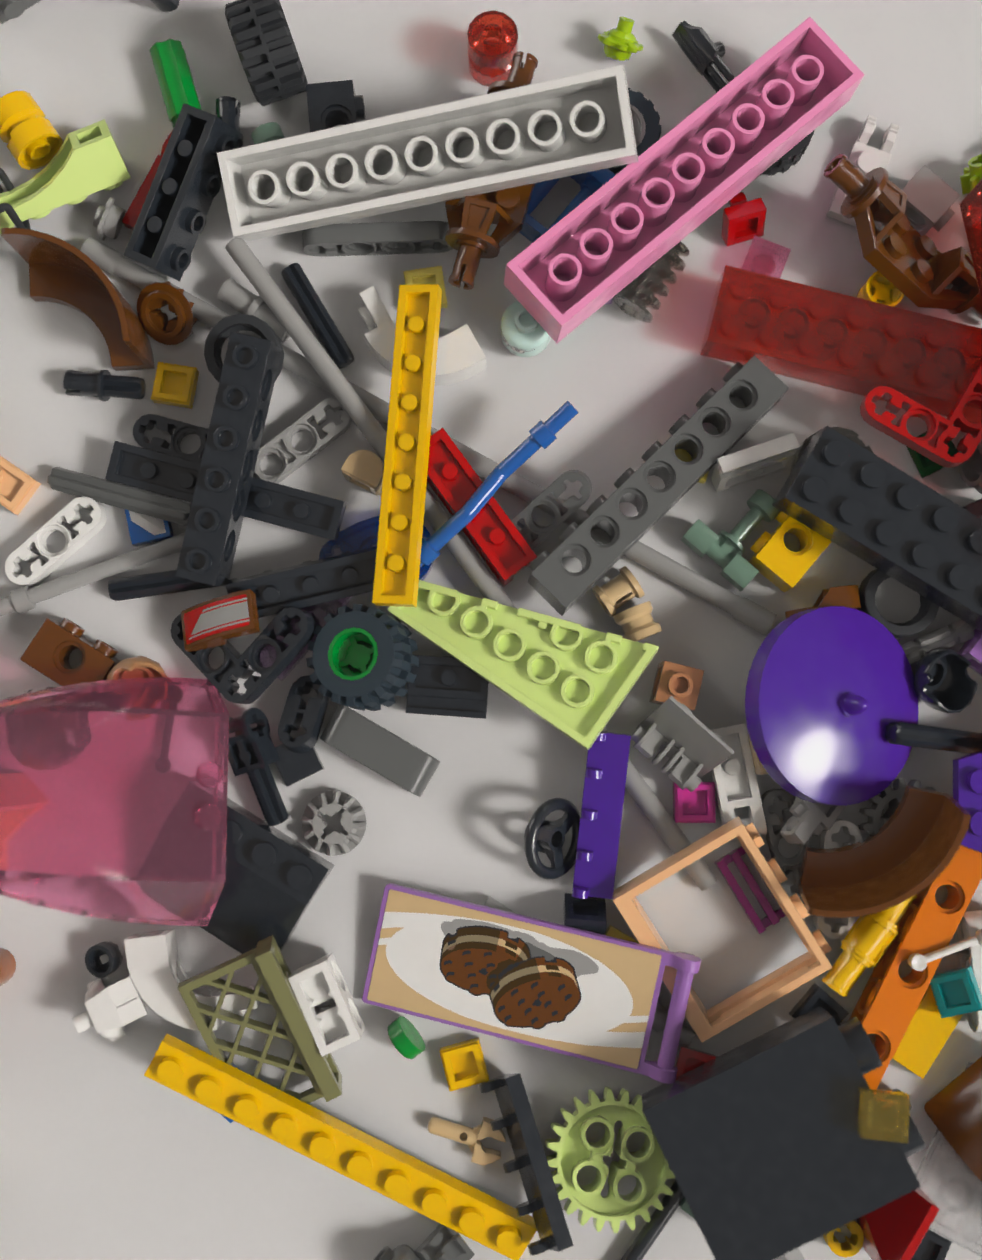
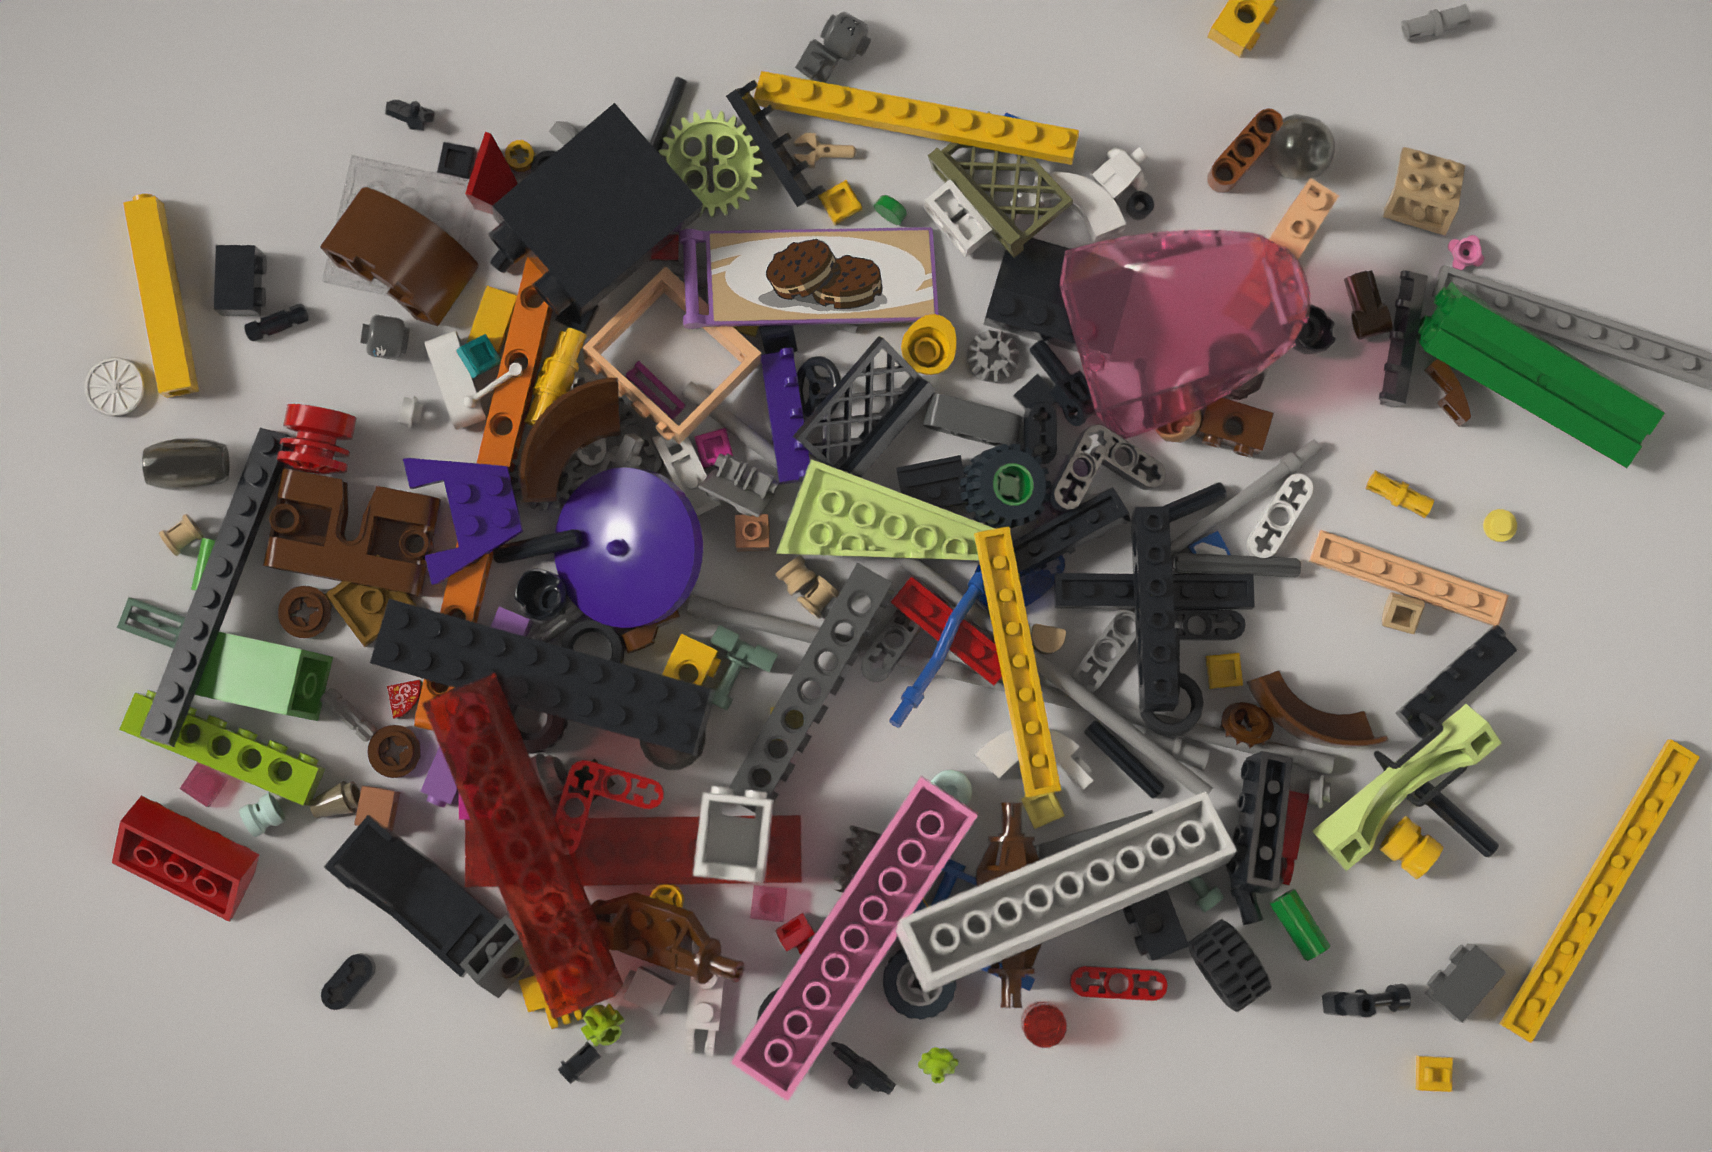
camera: 165 degrees right, 0 degrees up
(103, 385) = (1280, 653): black axle -> none
(220, 619) = (1125, 484): slope -> none
(366, 78) = (1144, 976): none -> red beam
(405, 855) = (929, 344): none -> yellow piece
(492, 771) = (879, 427): none -> black fence
(754, 462) = (726, 737): white plate -> none
(801, 319) = (731, 844): none -> white container
(884, 1115) = (531, 247): clear yellow tile -> none

